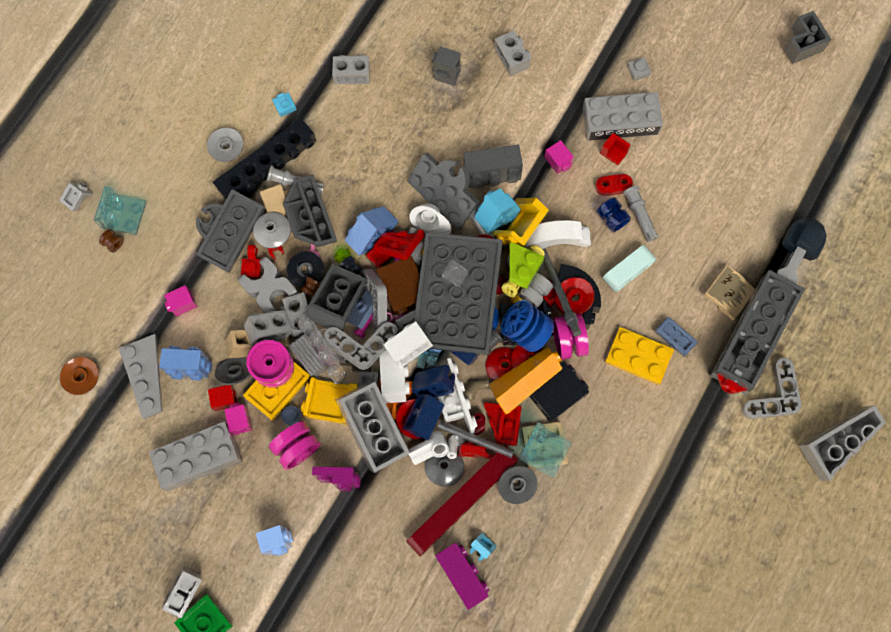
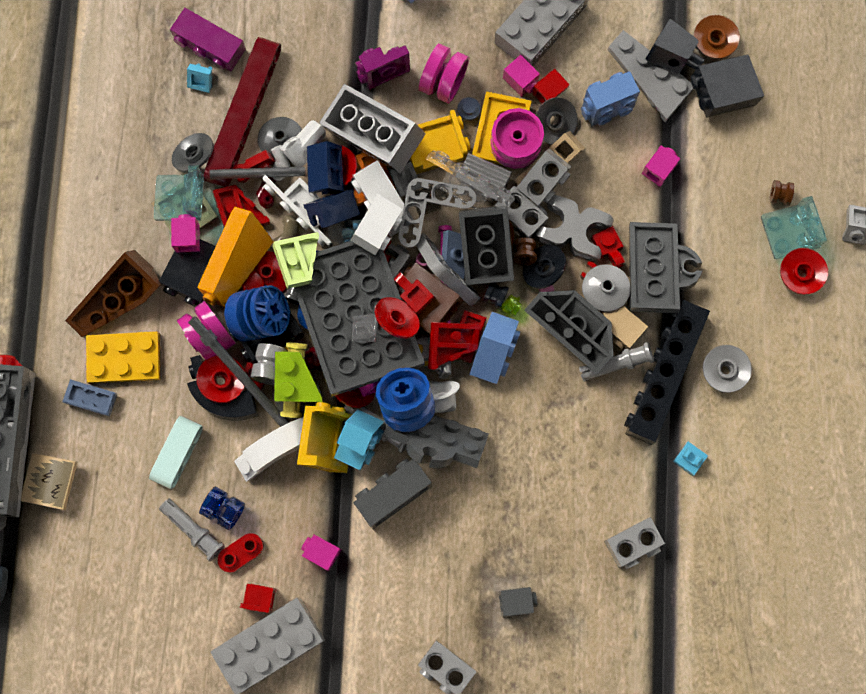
camera: 150 degrees right, 5 degrees up
(96, 333) = (726, 86): none -> black brick
(115, 380) = (674, 49): none -> black torso
(129, 175) = (811, 263): none -> red dish
(407, 284) = (415, 294): none -> red plate
(429, 267) = (397, 317): none -> red dish
(449, 223) = (405, 399): none -> blue wheel
(479, 348) = (296, 259): none -> yellowish green wing
(552, 413) = (185, 233): none -> dark pink brick
(618, 403) = (120, 290): none -> reddish brown wedge

